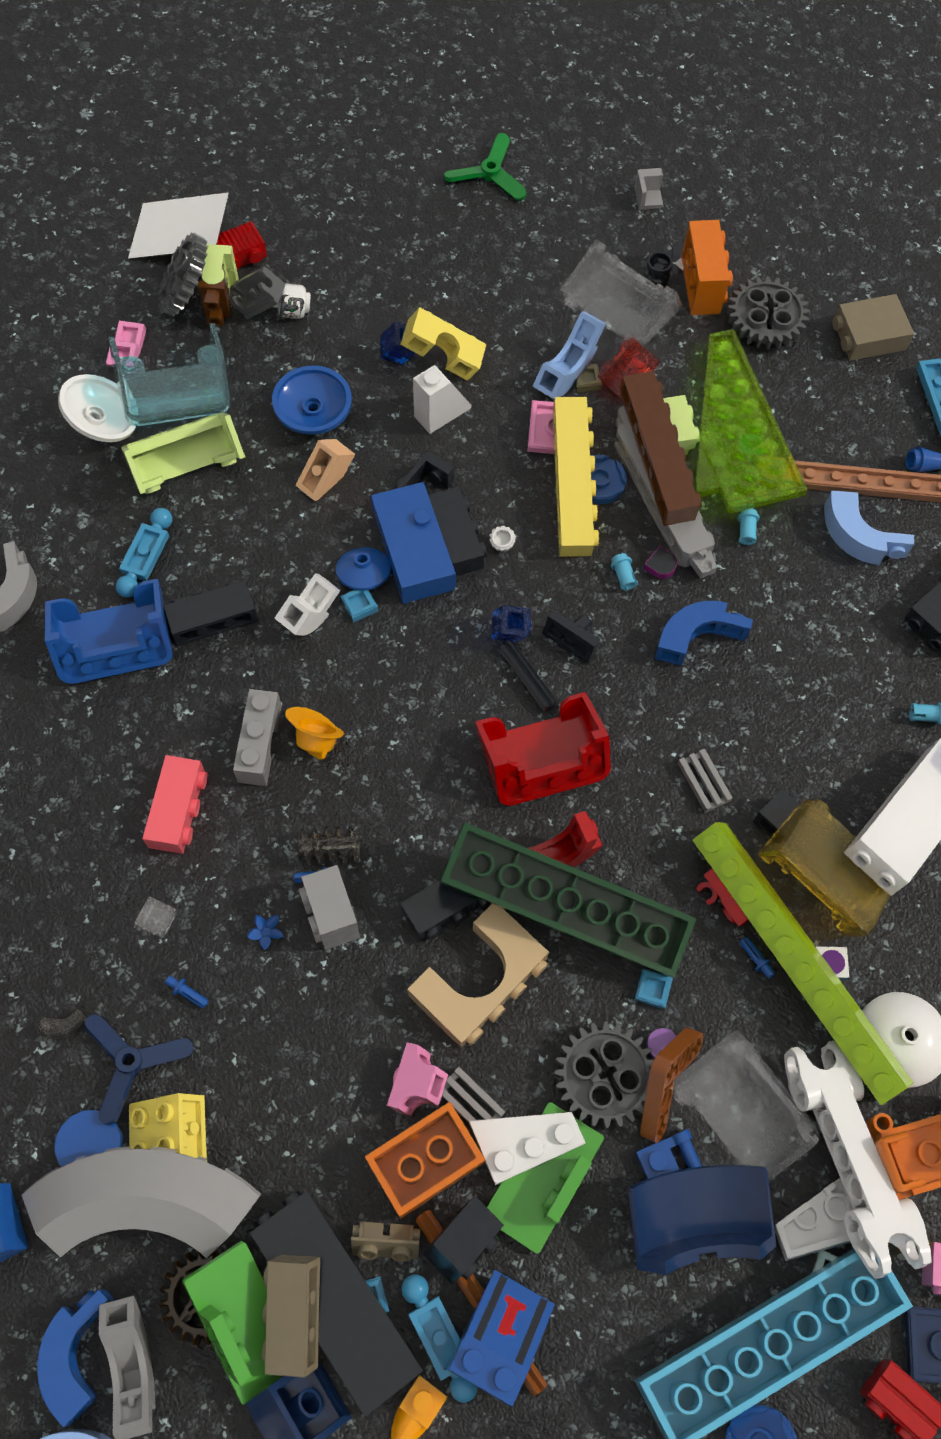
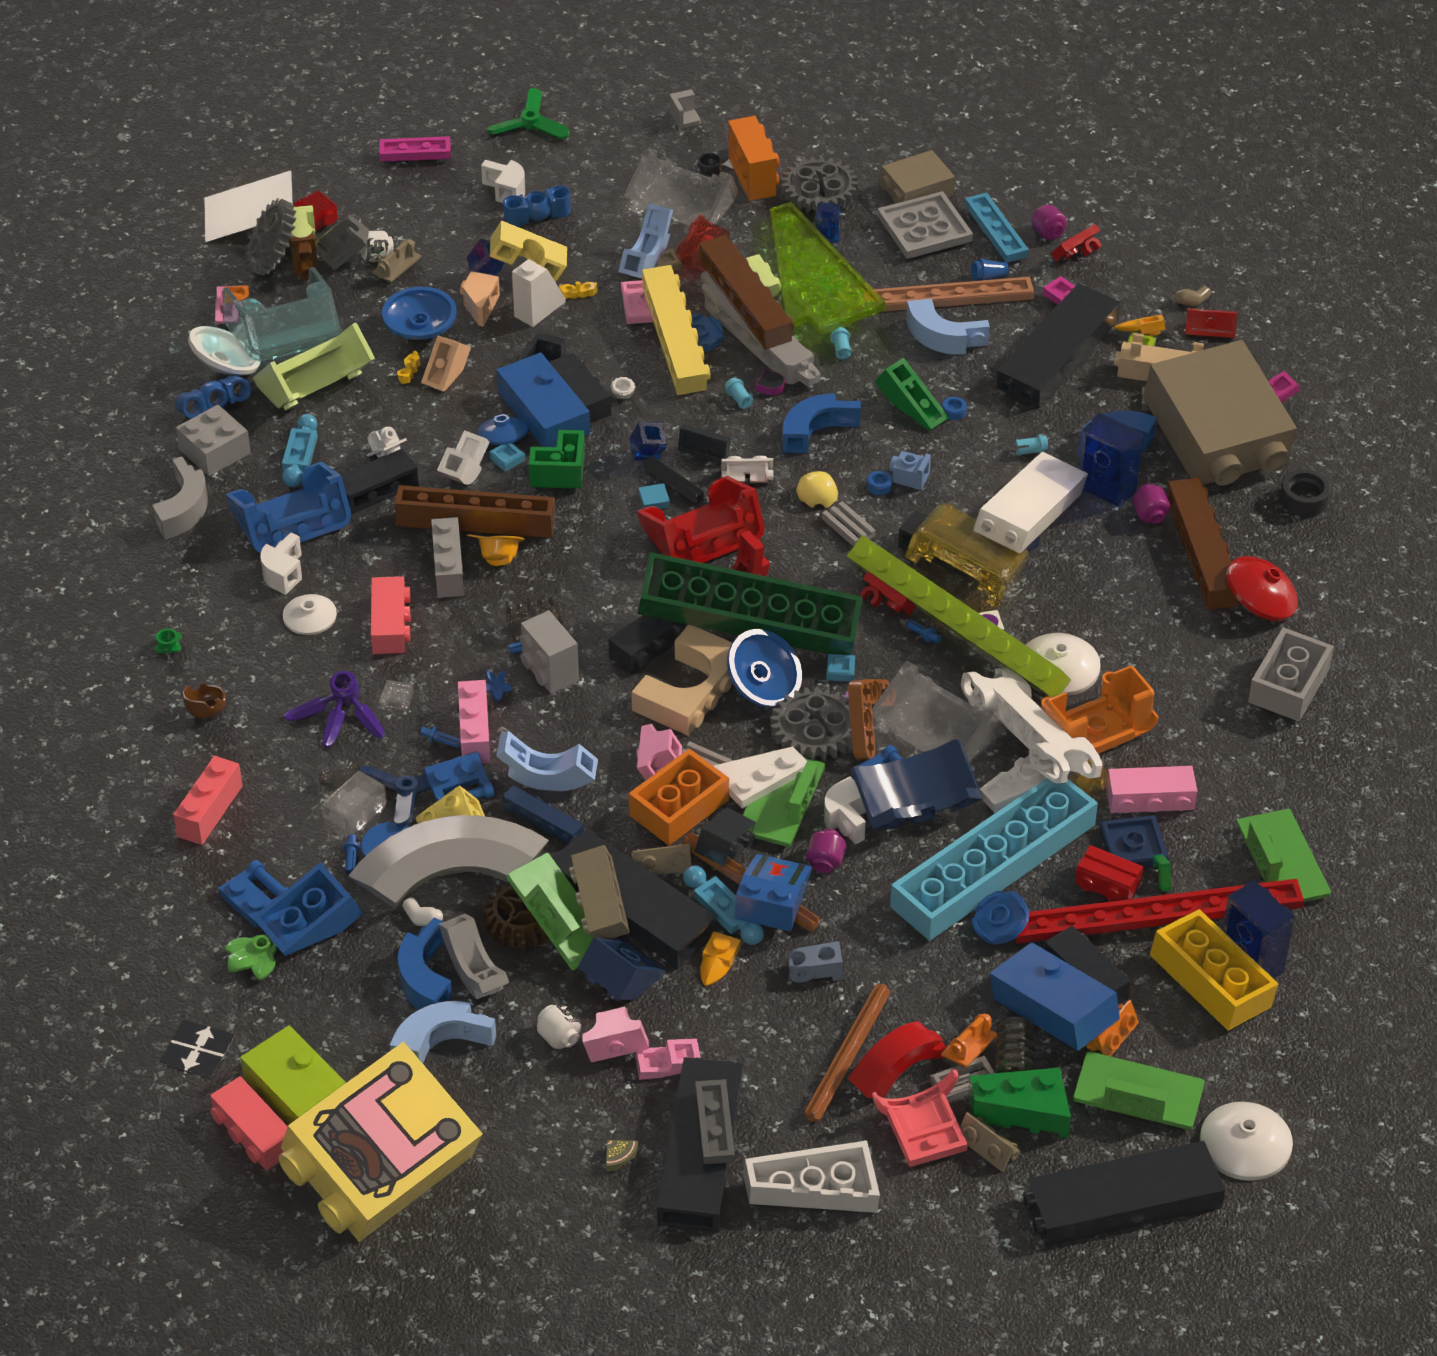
camera: 10 degrees left, 20 degrees down
(42, 1146) = (351, 848): none -> blue piece
(56, 522) = (213, 440): none -> light grey brick
(62, 471) = (224, 395): none -> blue piece
(63, 1077) = (354, 804): none -> clear brick
(75, 705) = (281, 564): none -> white brick
(91, 907) = (345, 692): none -> dark purple plant
(95, 1264) = (420, 915): none -> white arm
(104, 785) = (309, 614): none -> white dish
(132, 335) = (239, 292): none -> orange tile
(184, 1058) = (459, 771): none -> blue plate
(224, 985) = (474, 719): none -> bright pink brick
(230, 570) = (384, 442): none -> white hinge
(268, 1141) = (541, 814): none -> dark blue piece
(286, 1074) = (546, 771): none -> light blue arch
(291, 459) = (411, 363): none -> yellow piece
(302, 682) = (476, 511): none -> reddish brown brick
(310, 325) = (397, 262): none -> dark tan hinge
(365, 185) = (415, 149): none -> dark pink plate
(383, 386) = (480, 295): none -> light nougat slope
(410, 637) = (559, 465): none -> green brick
(447, 243) = (506, 179): none -> white brick
(469, 282) = (537, 206): none -> blue piece
(493, 398) = (583, 291): none -> yellow piece
(501, 695) = (654, 496): none -> dark azure tile
(576, 1280) = (826, 850): none -> magenta head
(578, 991) = (772, 662): none -> blue dish
(604, 1214) = (844, 809): none -> white brick
(621, 682) = (758, 467): none -> white hinge
(680, 725) = (817, 489): none -> light yellow hair
(750, 727) = (879, 482): none -> blue tile
(768, 363) = (828, 220): none -> clear blue brick
(788, 719) = (910, 469): none -> medium blue brick
(809, 617) = (910, 395): none -> green slope
(852, 639) = (954, 408): none -> blue tile
(869, 386) = (925, 225): none -> light grey plate

